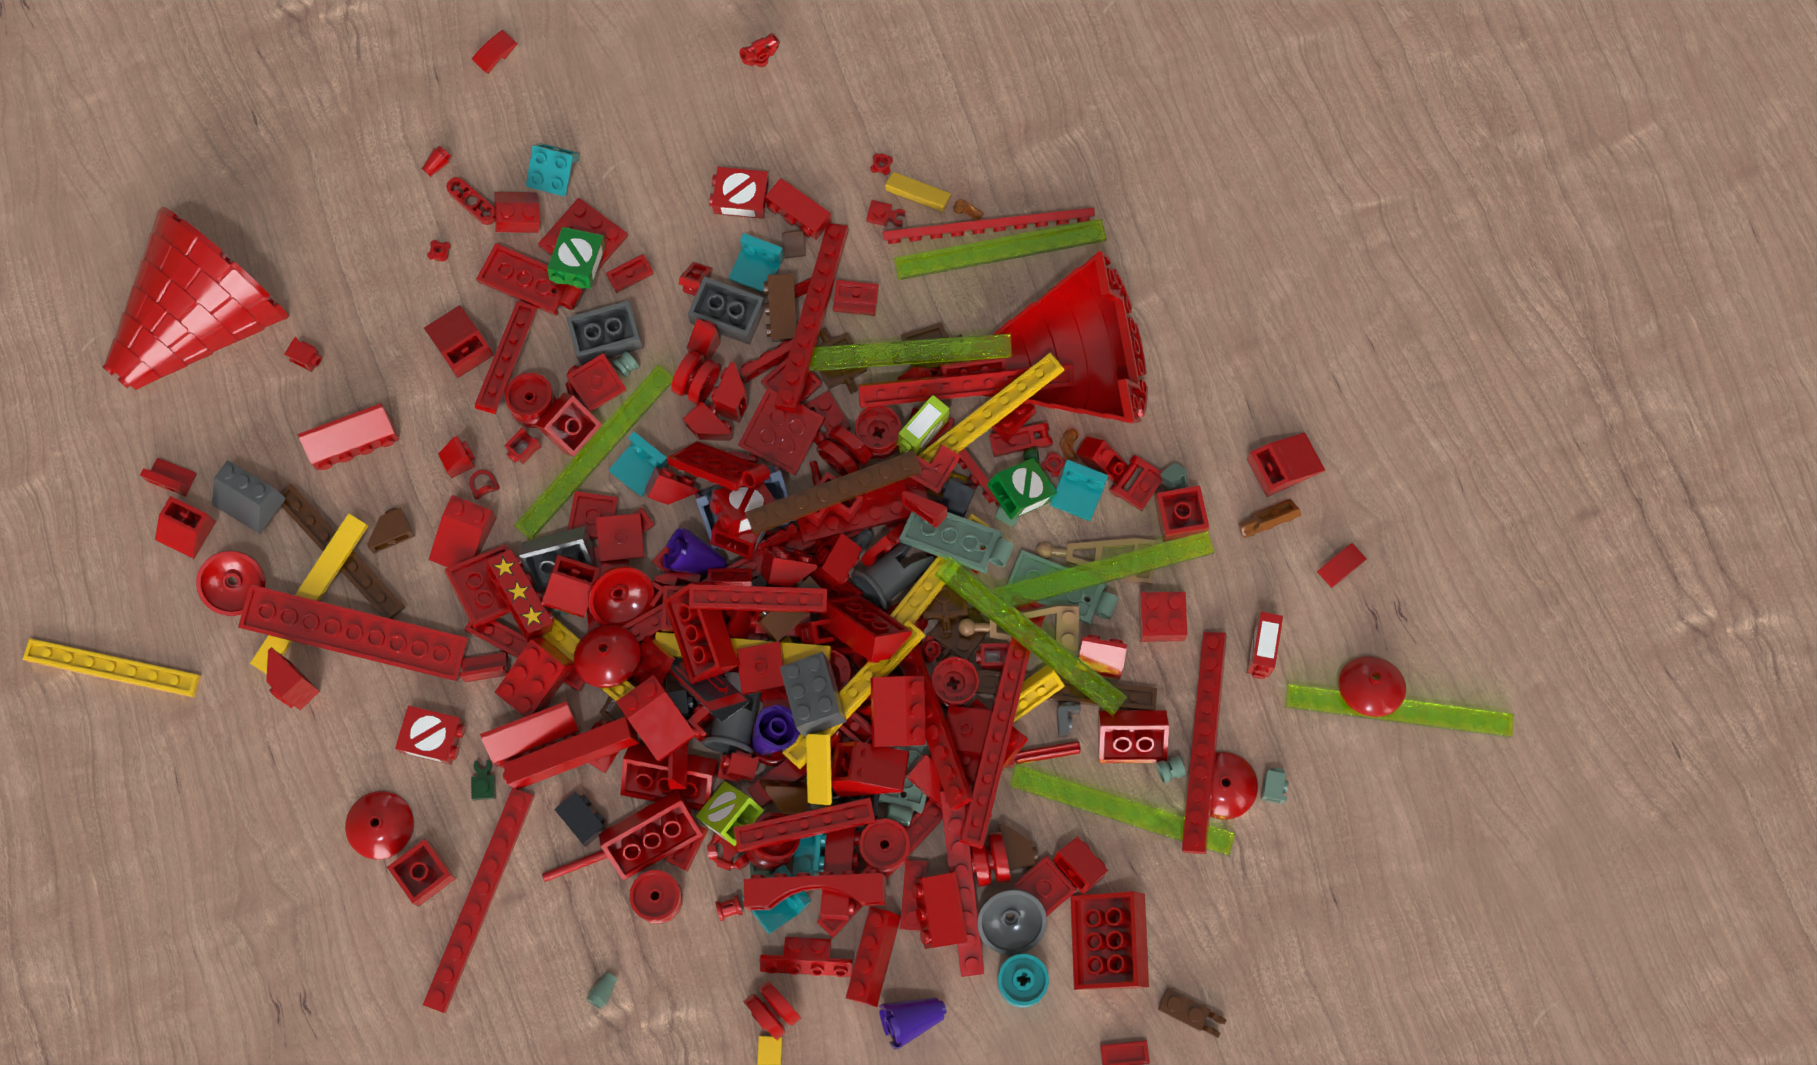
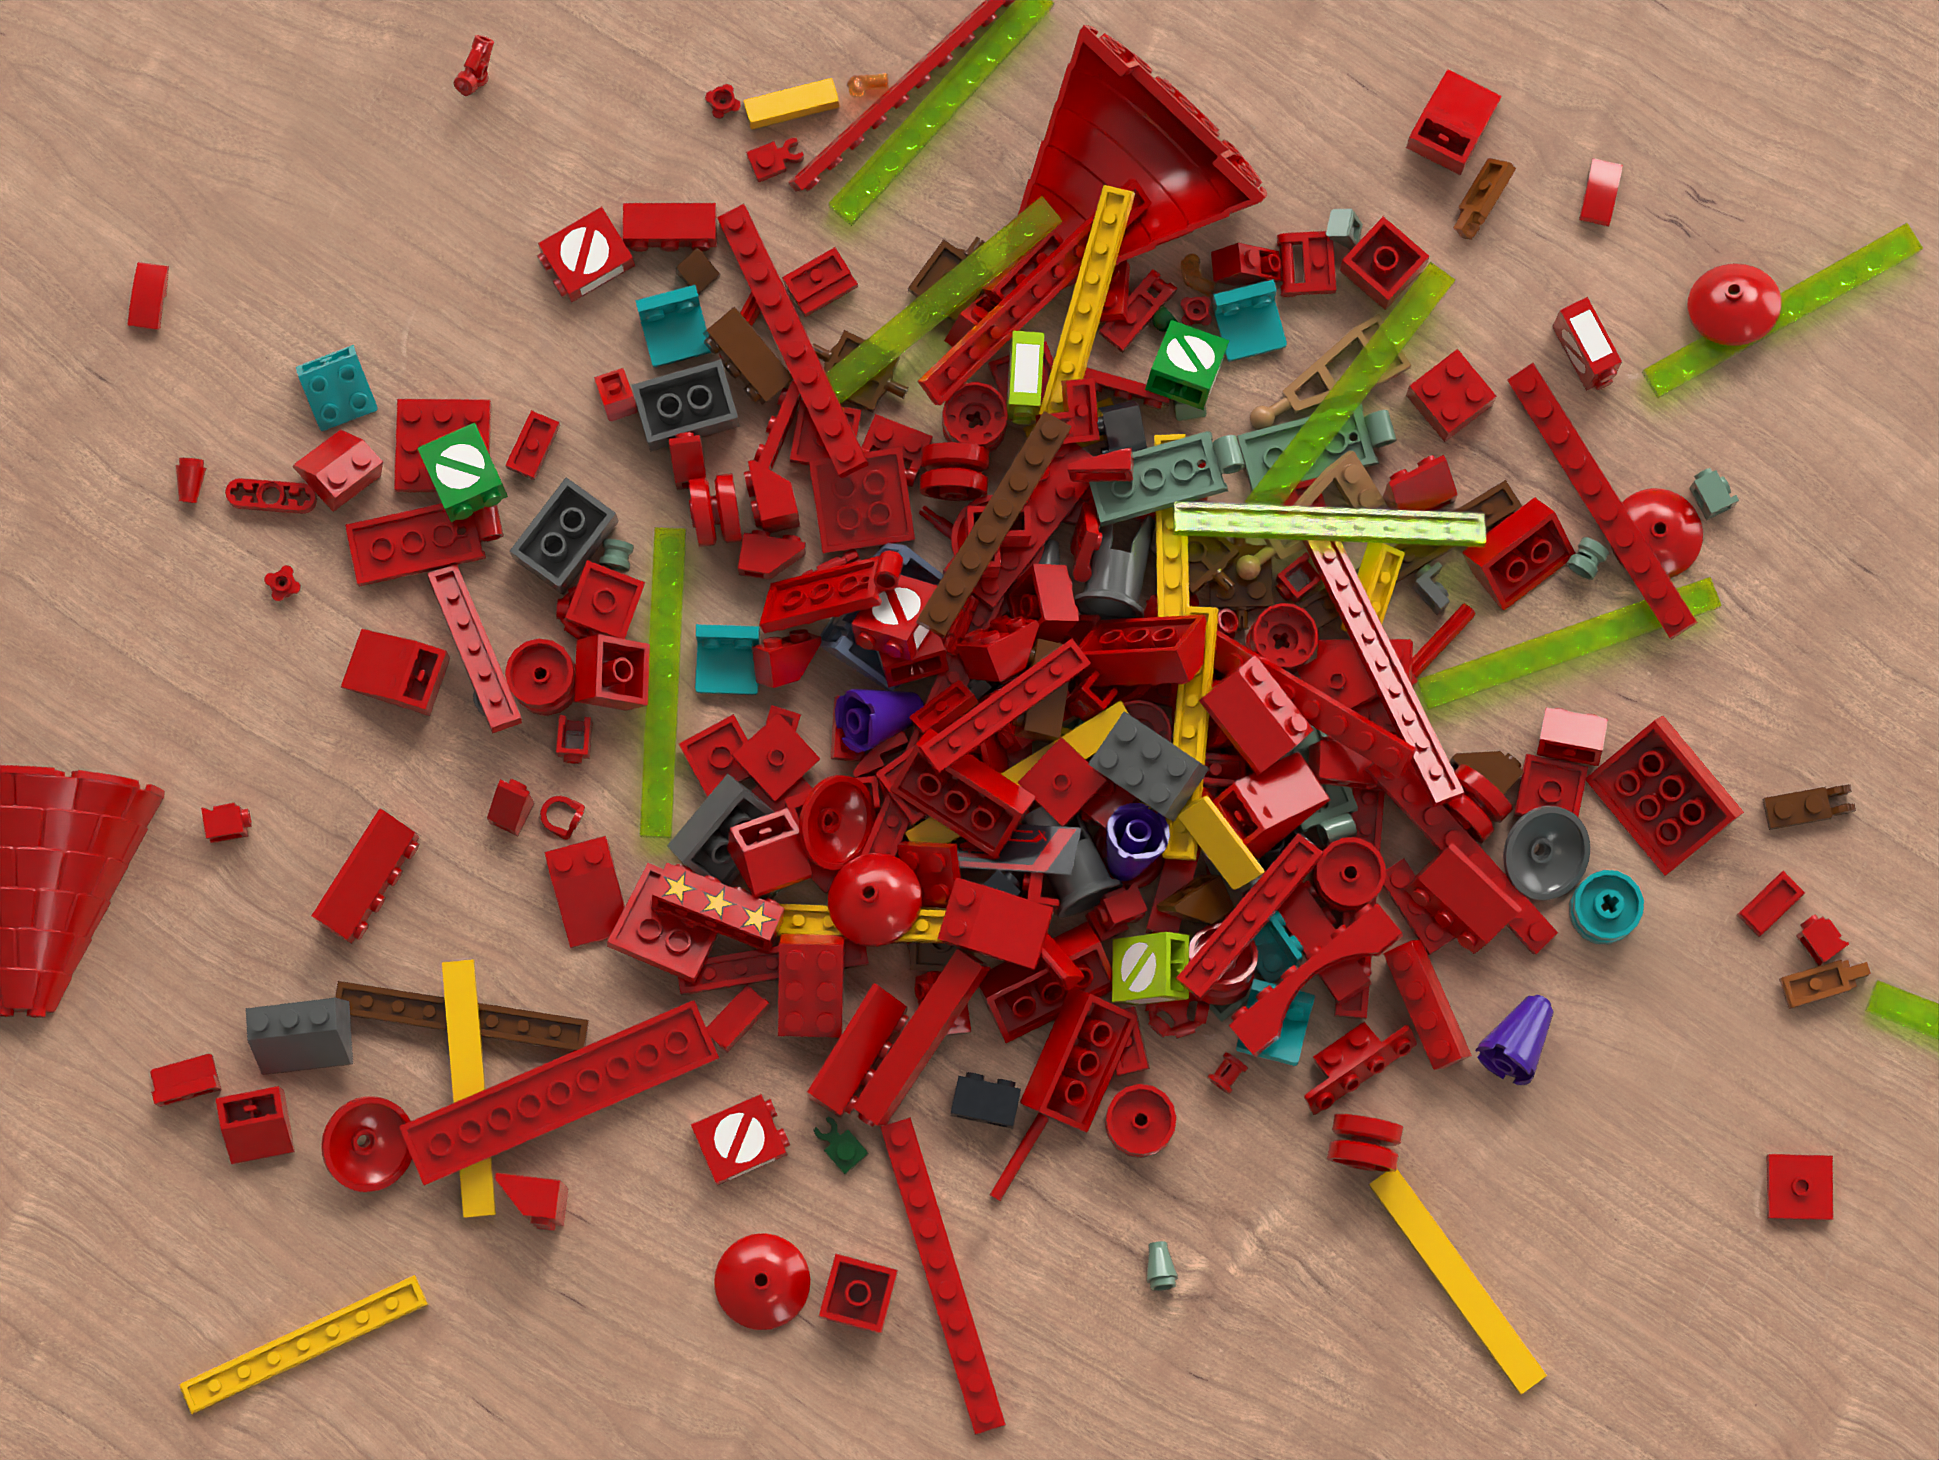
camera: 40 degrees left, 5 degrees up
(390, 530) = (501, 945): reddish brown slope -> none

